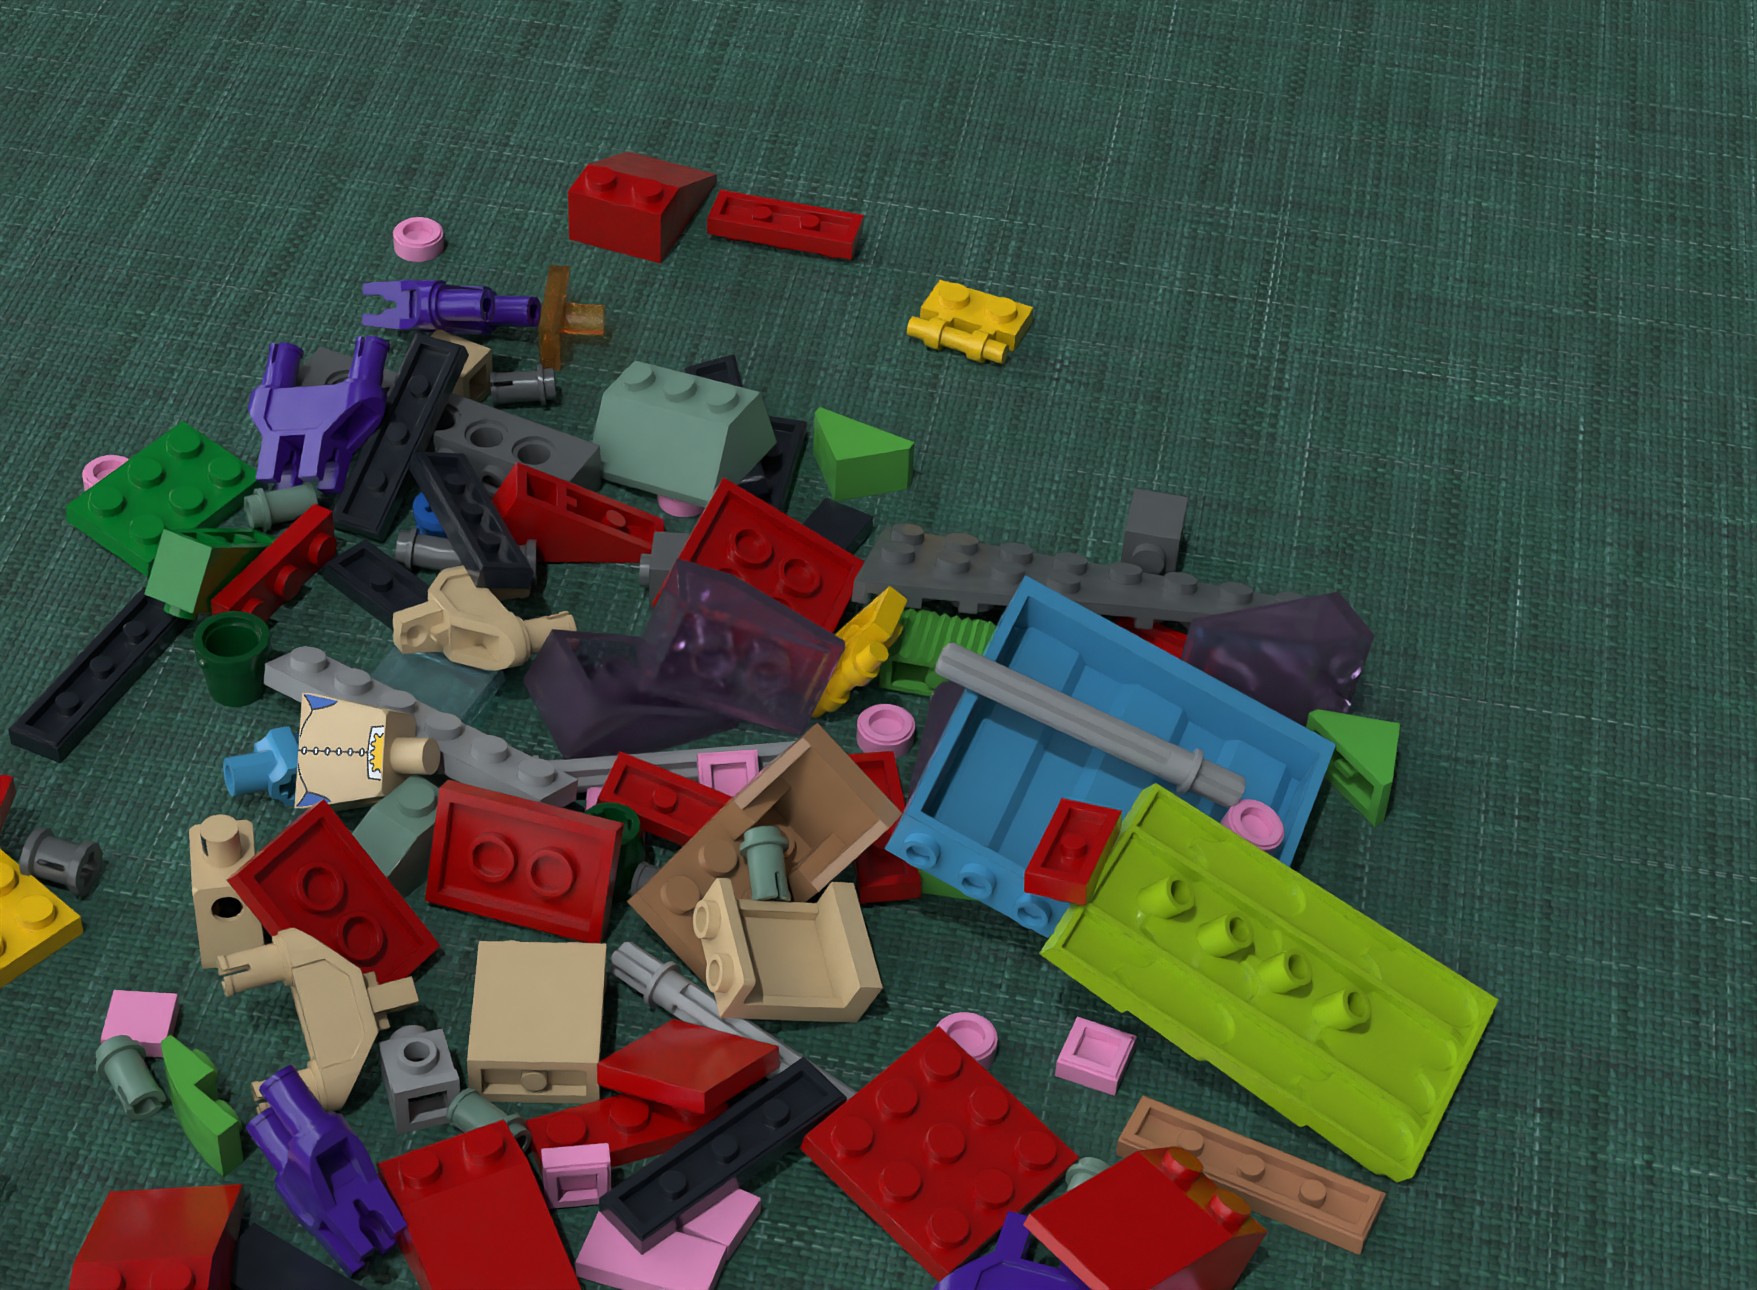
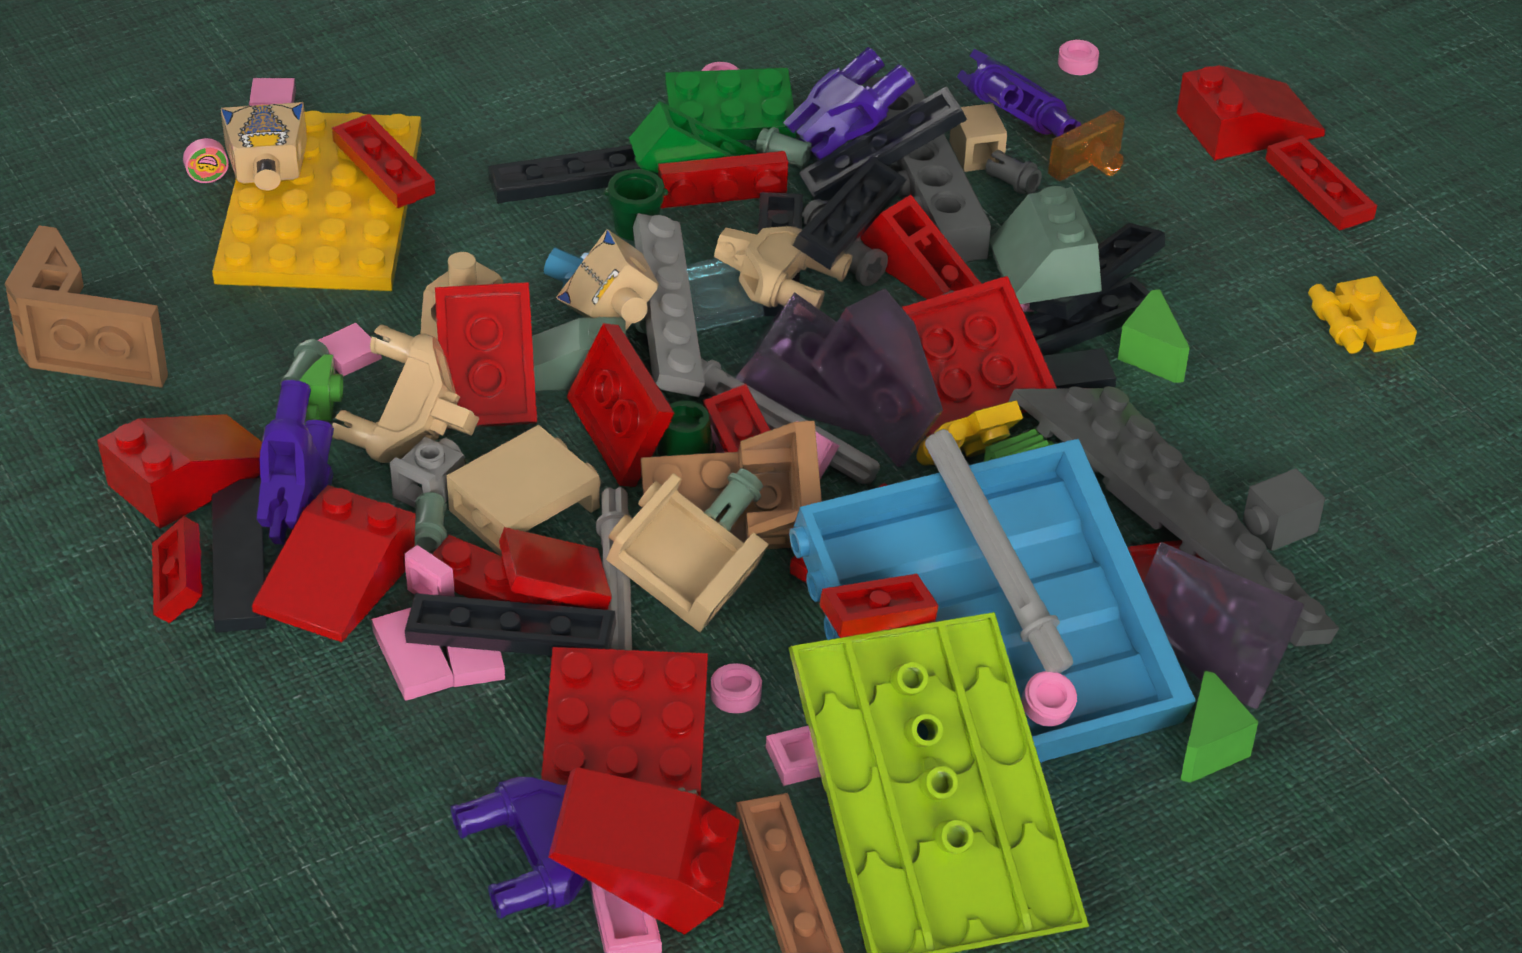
camera: 50 degrees right, 0 degrees up
(61, 860) = (416, 239): dark grey bush -> none

